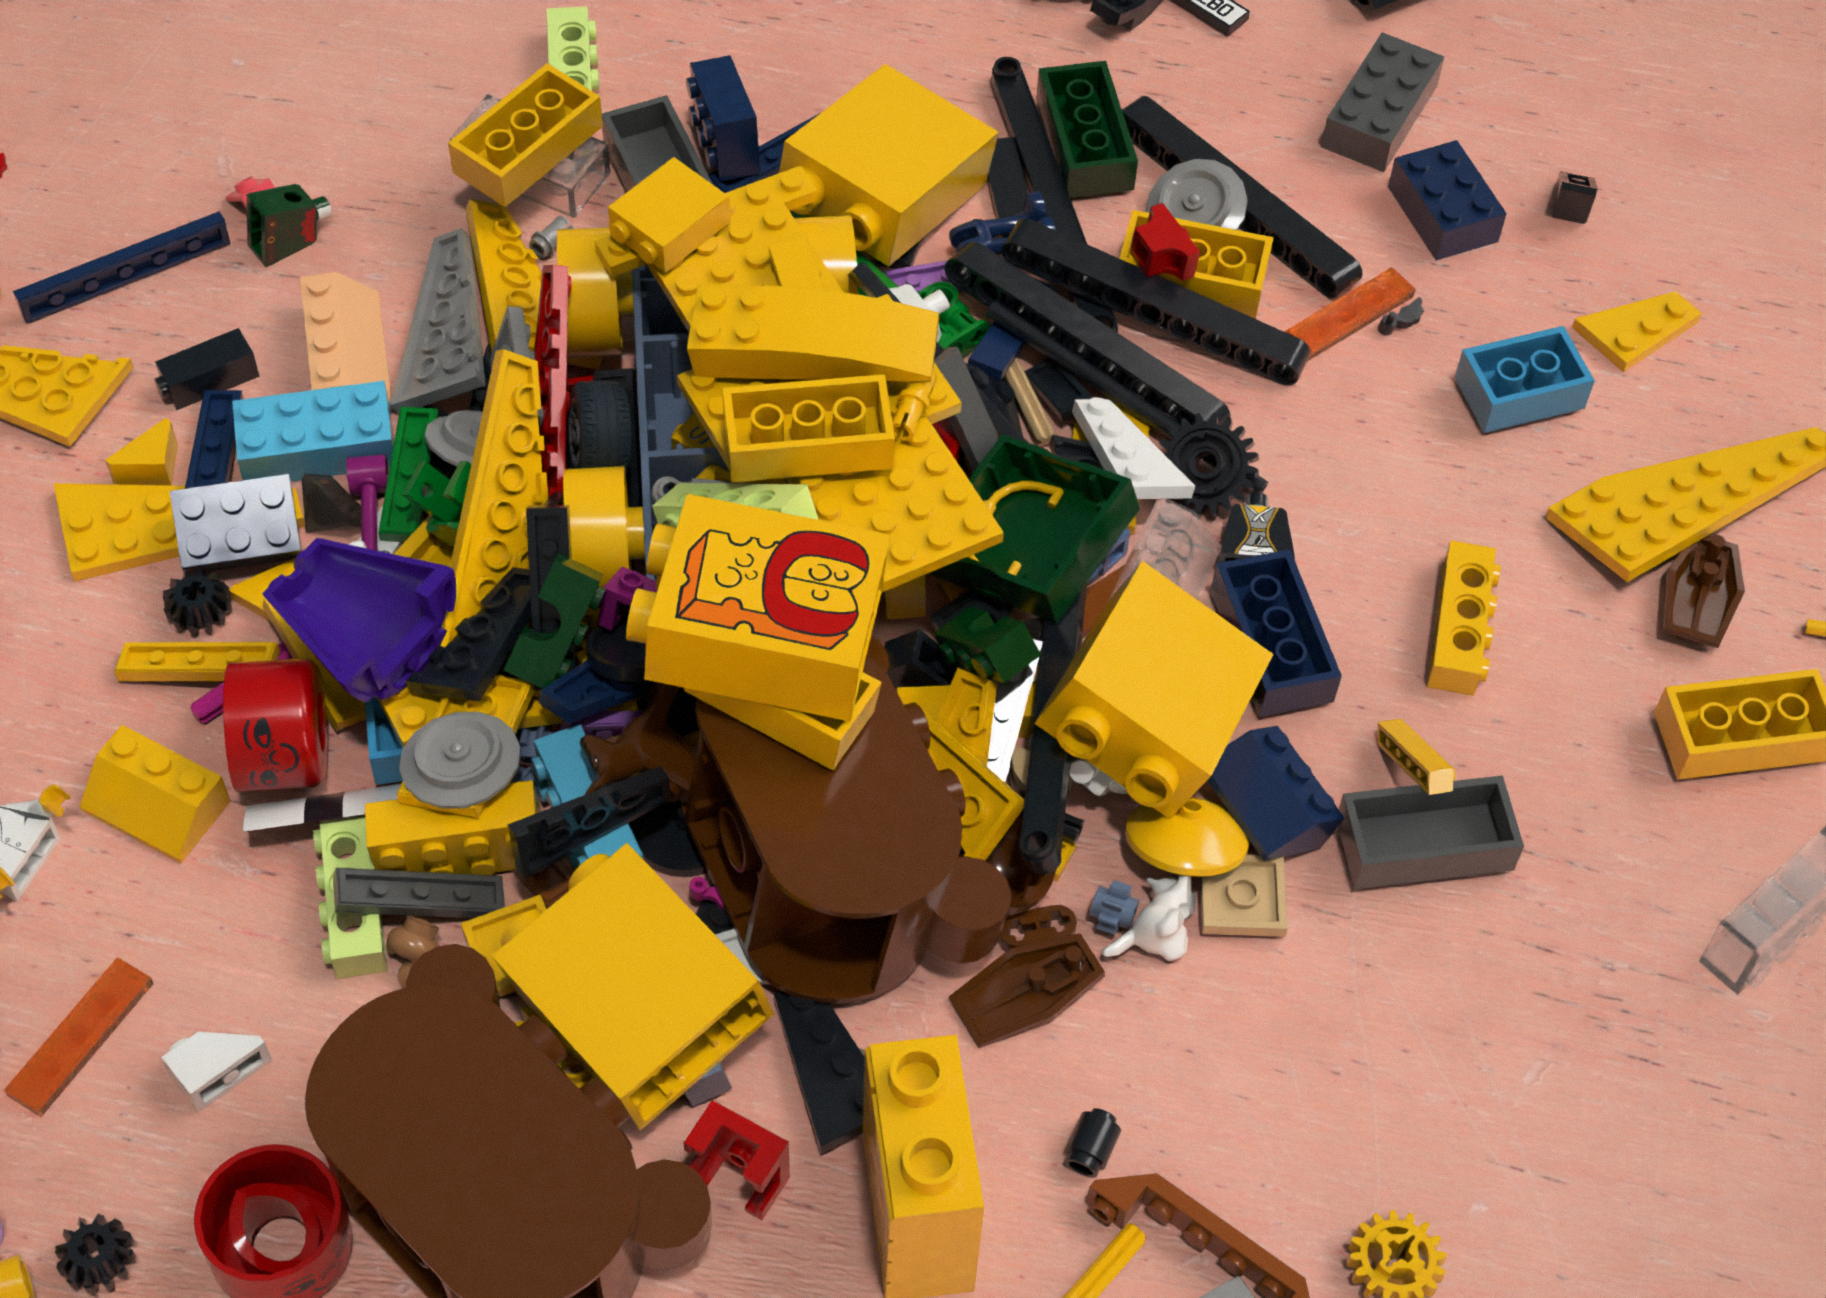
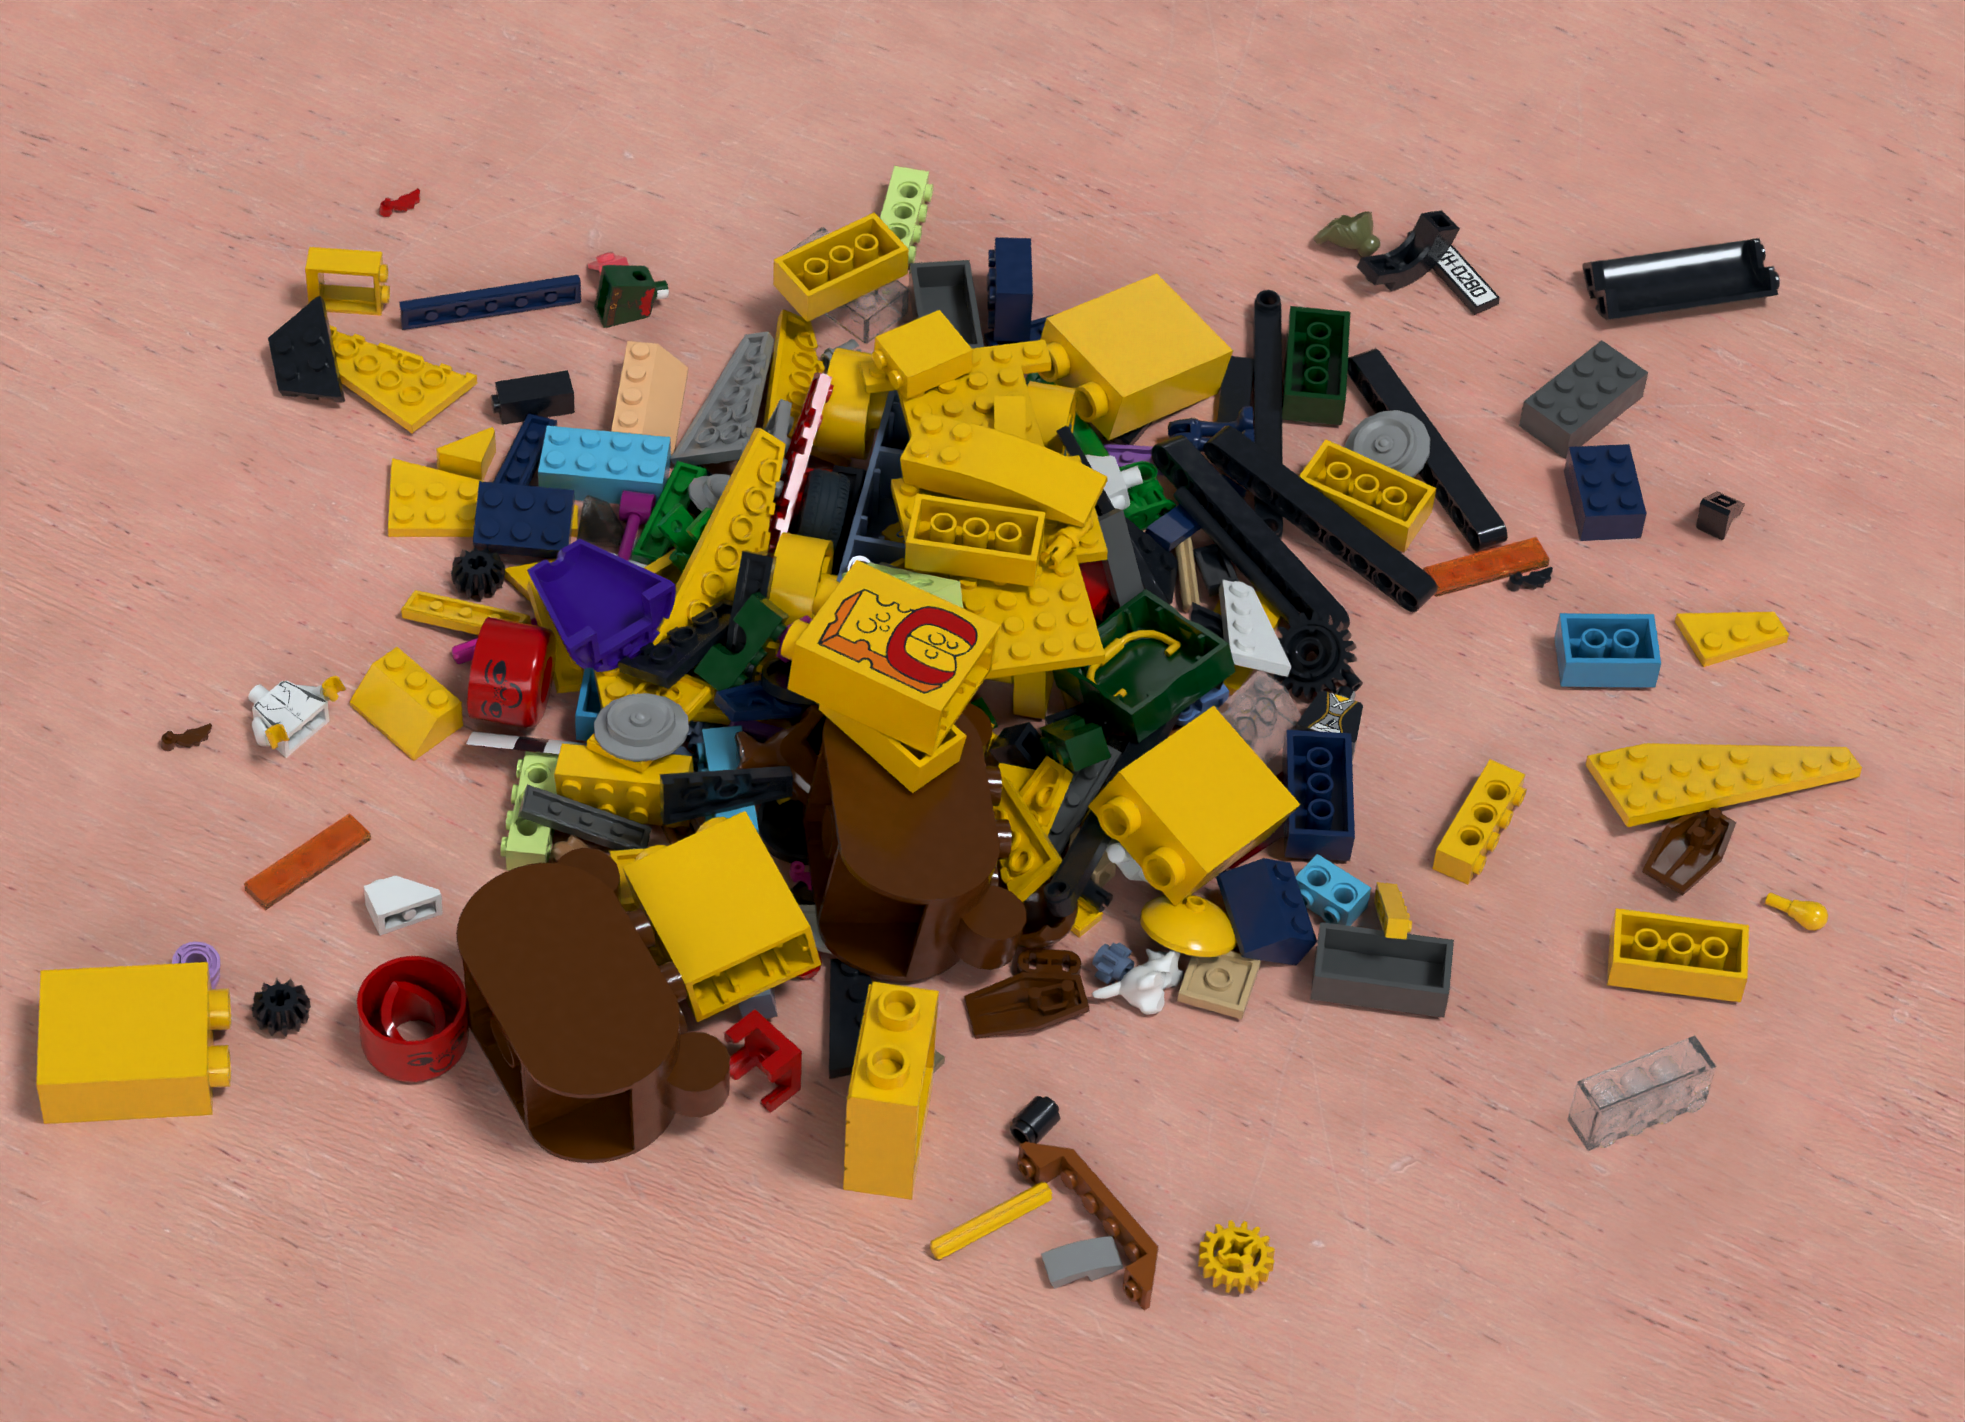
camera: 15 degrees right, 5 degrees down
(1164, 246) = (1336, 473): red brick -> none
(1333, 742) = (1332, 892): none -> medium azure brick

